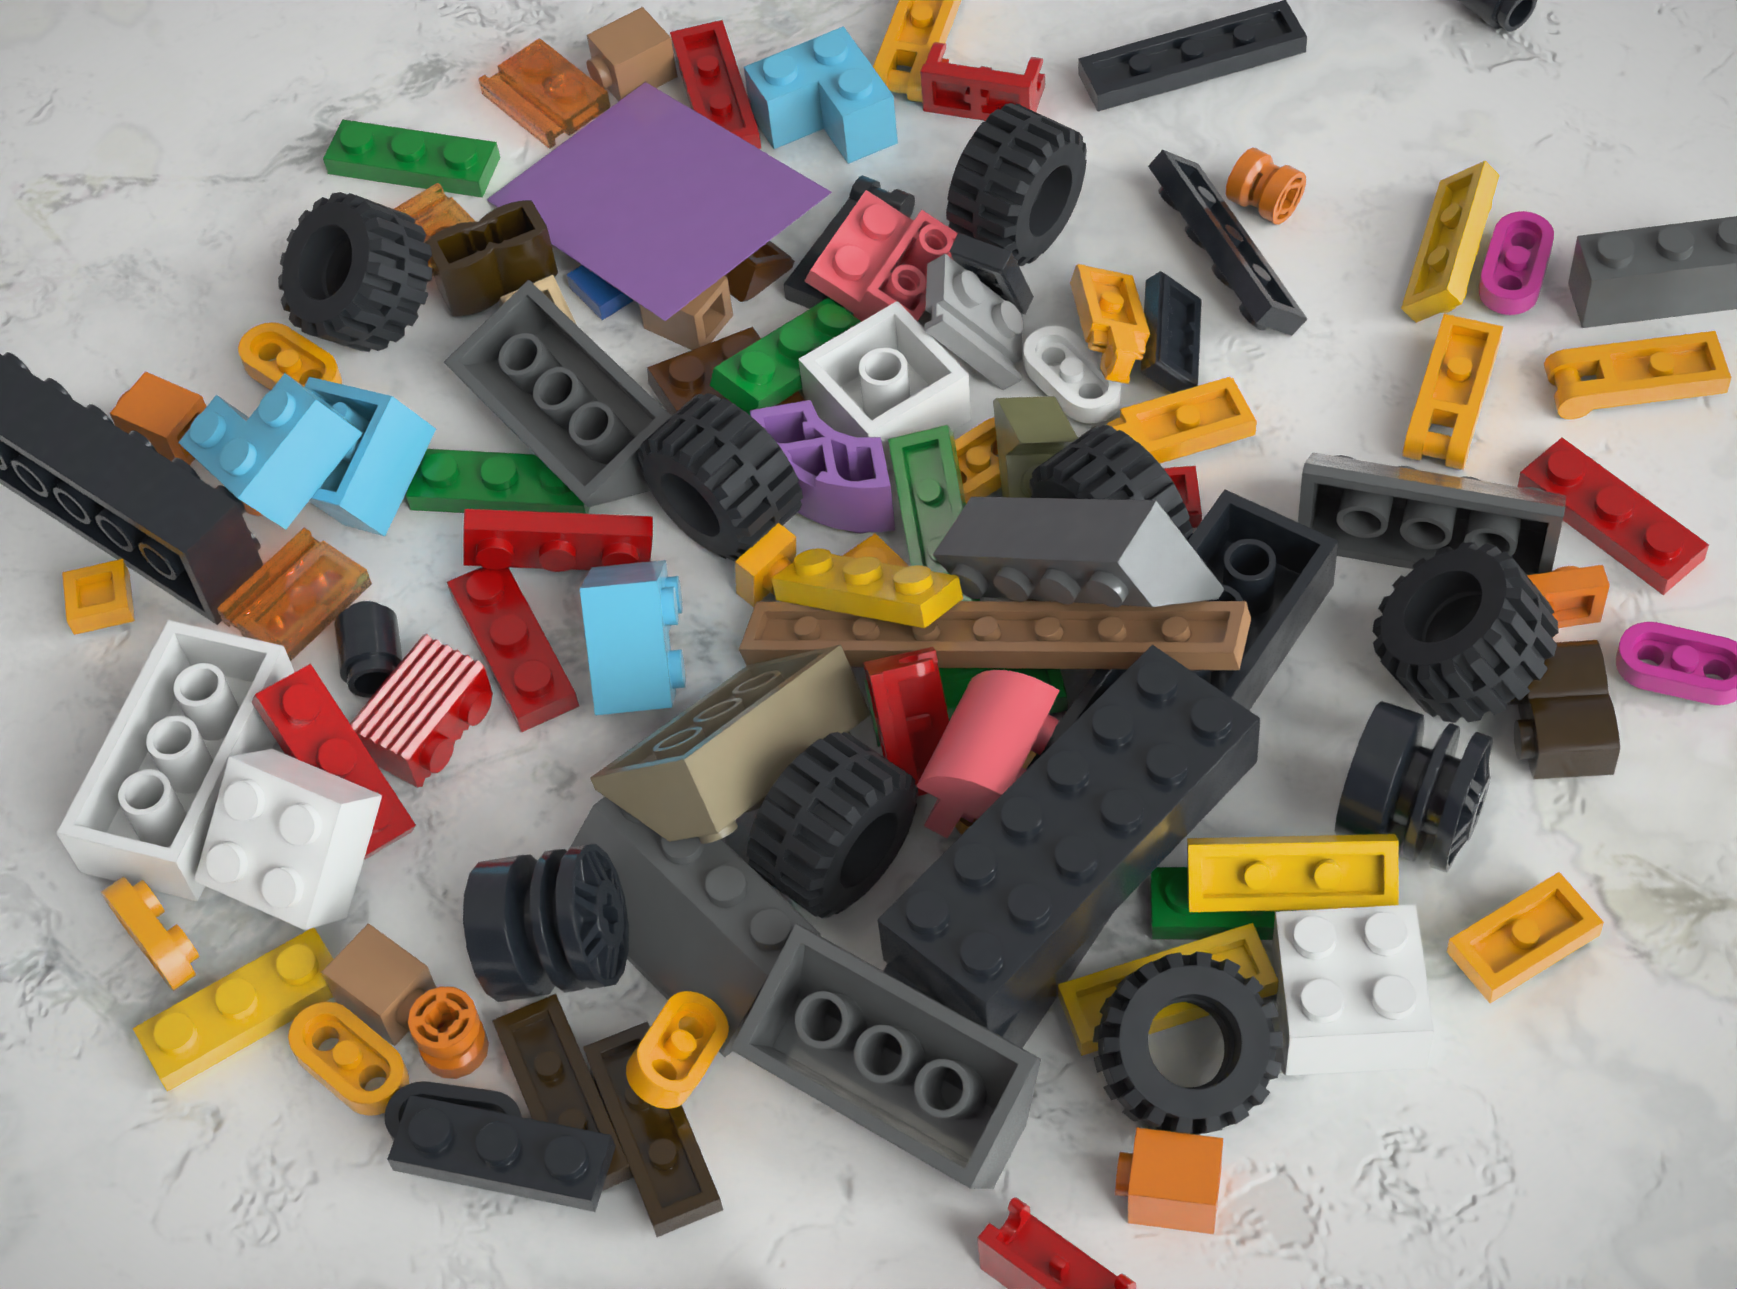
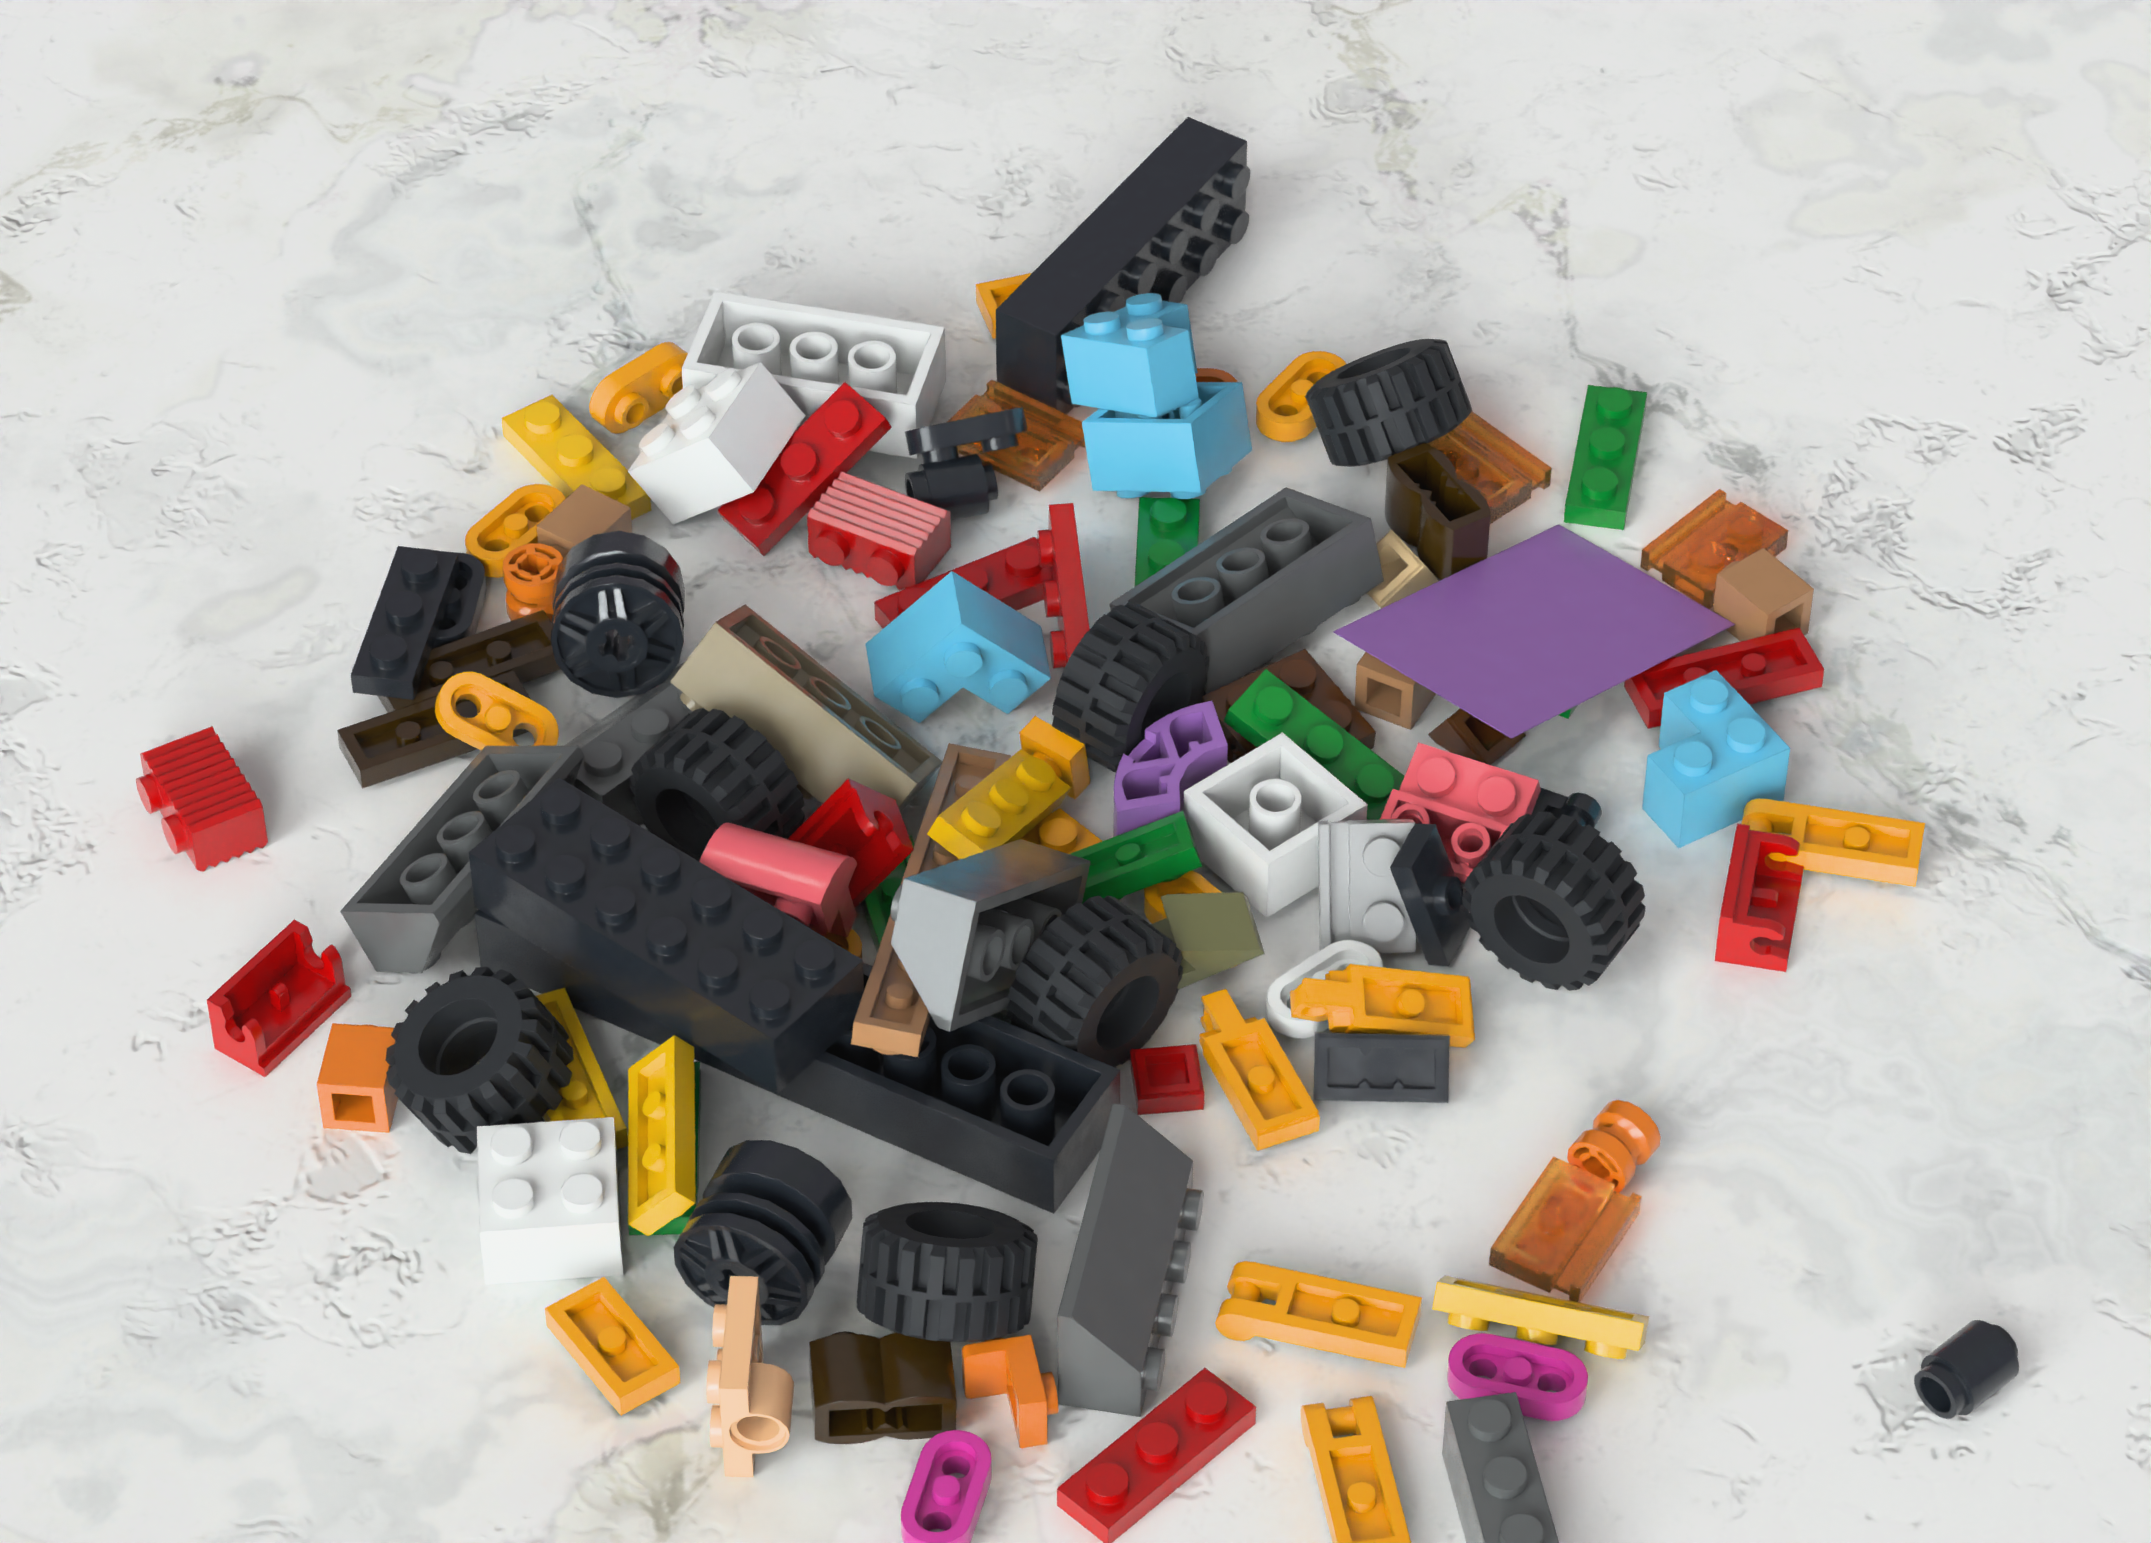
camera: 80 degrees right, 10 degrees down
(159, 413) = (1223, 314): orange brick -> none
(316, 614) = (941, 440): none -> black plate
(1192, 55) = (1828, 1087): black plate -> none
(1234, 253) = (1521, 1113): black plate -> none
(1353, 225) = (1564, 1230): none -> clear orange plate
(1594, 803) = (751, 1394): none -> light nougat plate

